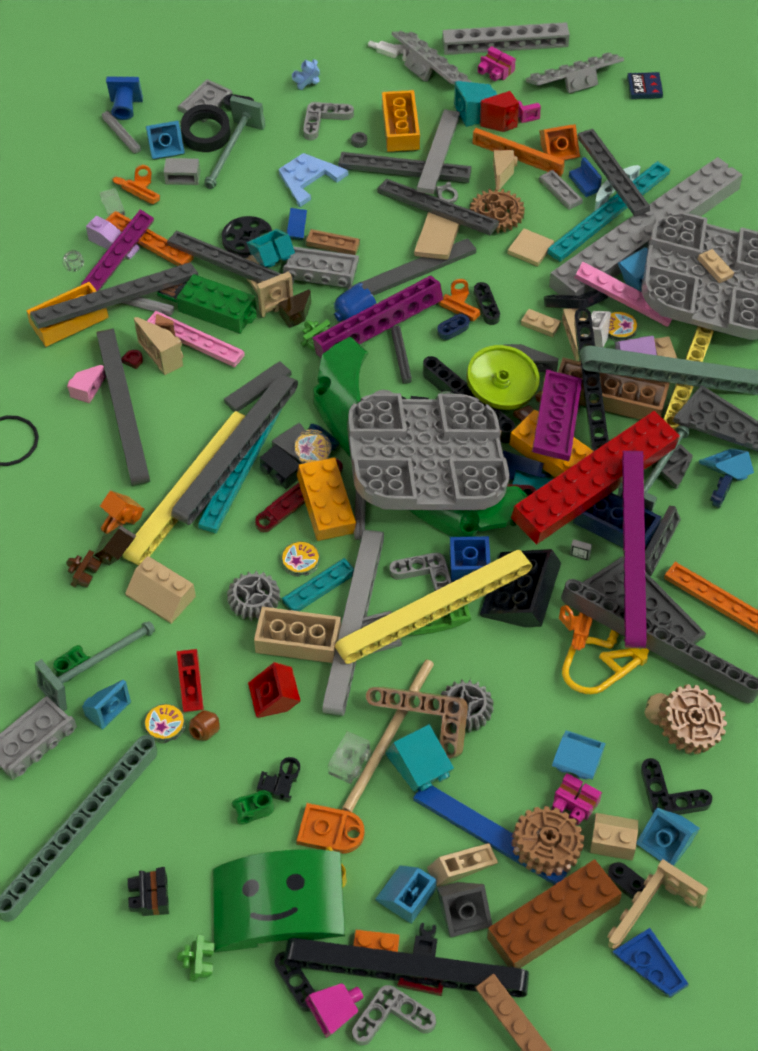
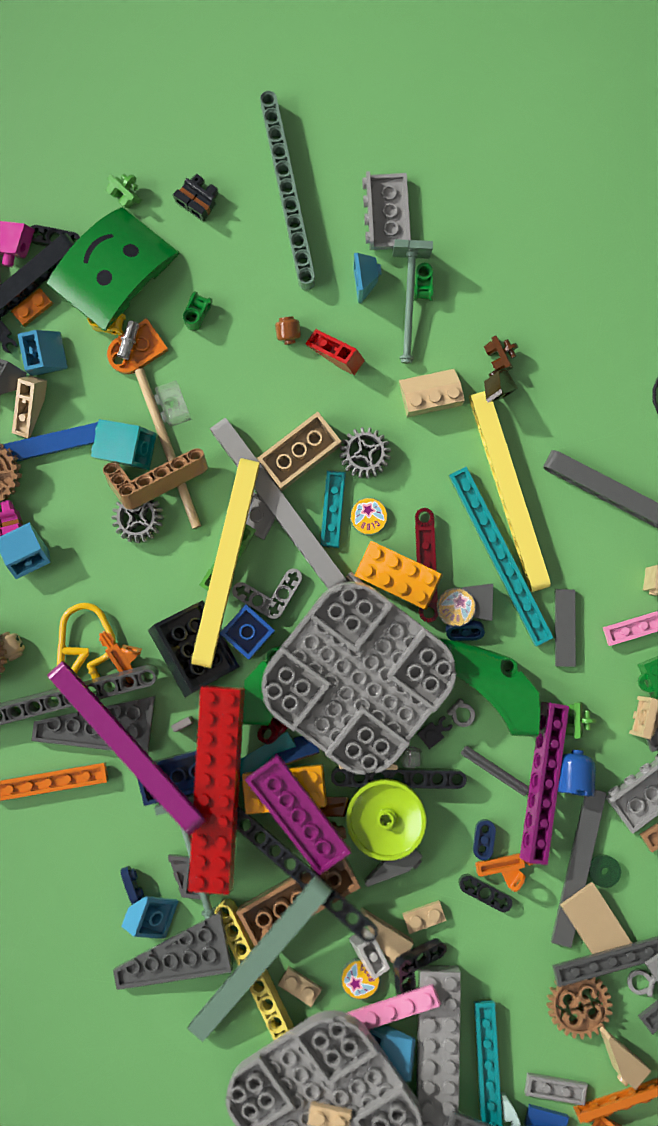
camera: 135 degrees right, 30 degrees up
(120, 510) = (528, 417): orange brick -> none
(164, 723) = (317, 308): tile -> none
(234, 449) = (511, 552): dark grey beam -> none
(274, 690) = (271, 399): red slope -> none
(279, 466) = (465, 572): black brick -> none
(280, 785) = (199, 342): black piece -> none
(295, 309) = (619, 728): dark brown slope -> none
(329, 832) = (128, 340): none -> light grey axle
(398, 255) = (613, 871): none -> clear green piece
(530, 247) = (513, 993): tan tile -> none
(640, 345) = (324, 965): lavender brick -> none
(661, 539) = (135, 795): dark grey tile -> none

